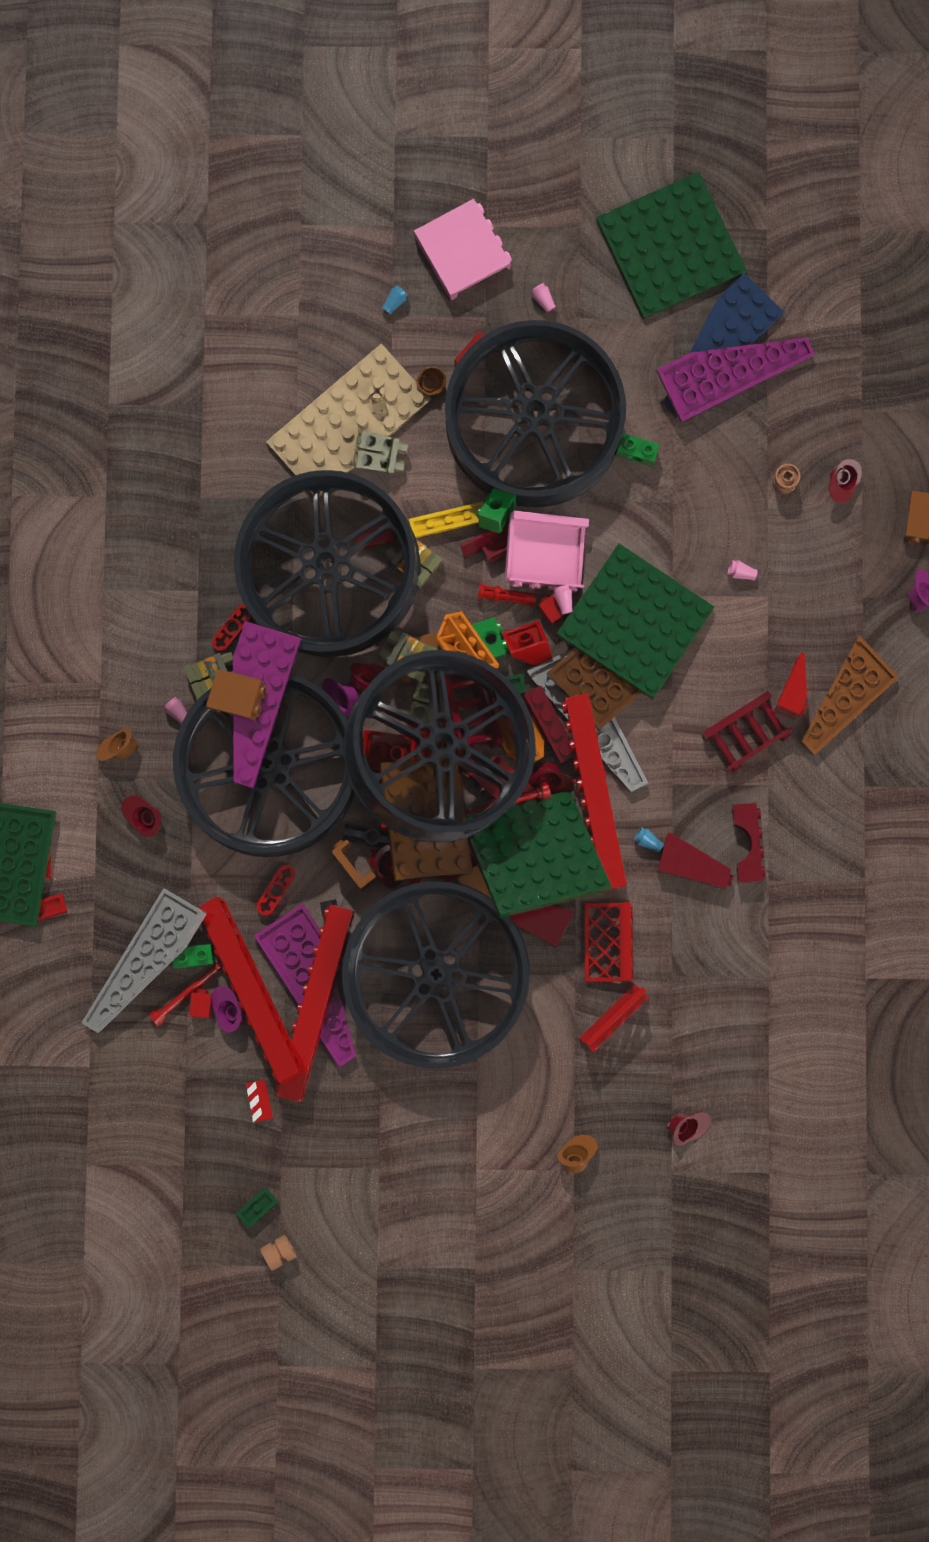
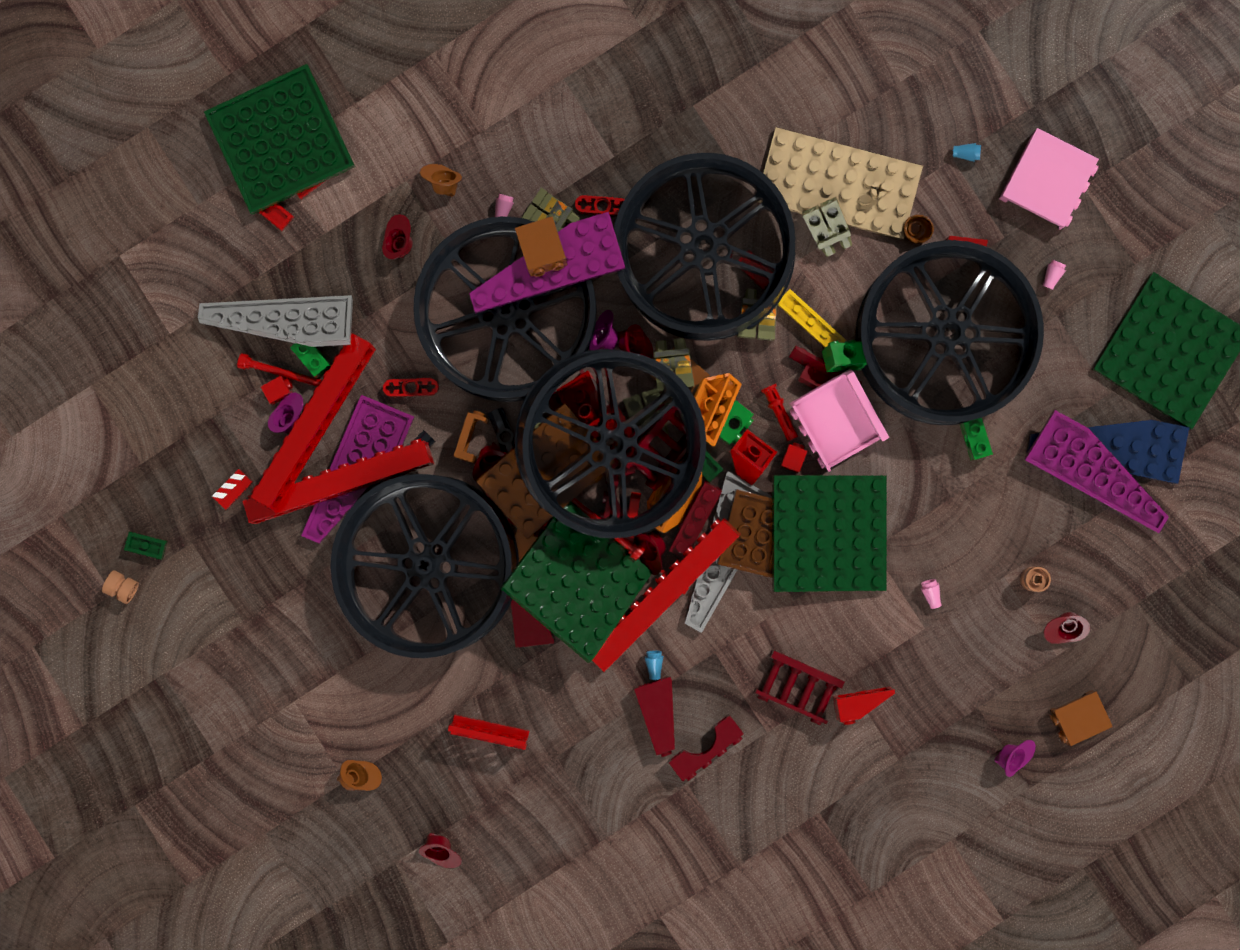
camera: 60 degrees right, 5 degrees up
(563, 597) = (807, 462): bright pink cone -> none
(625, 937) = (559, 700): red fence -> none
(856, 686) = (897, 752): dark orange wing -> none

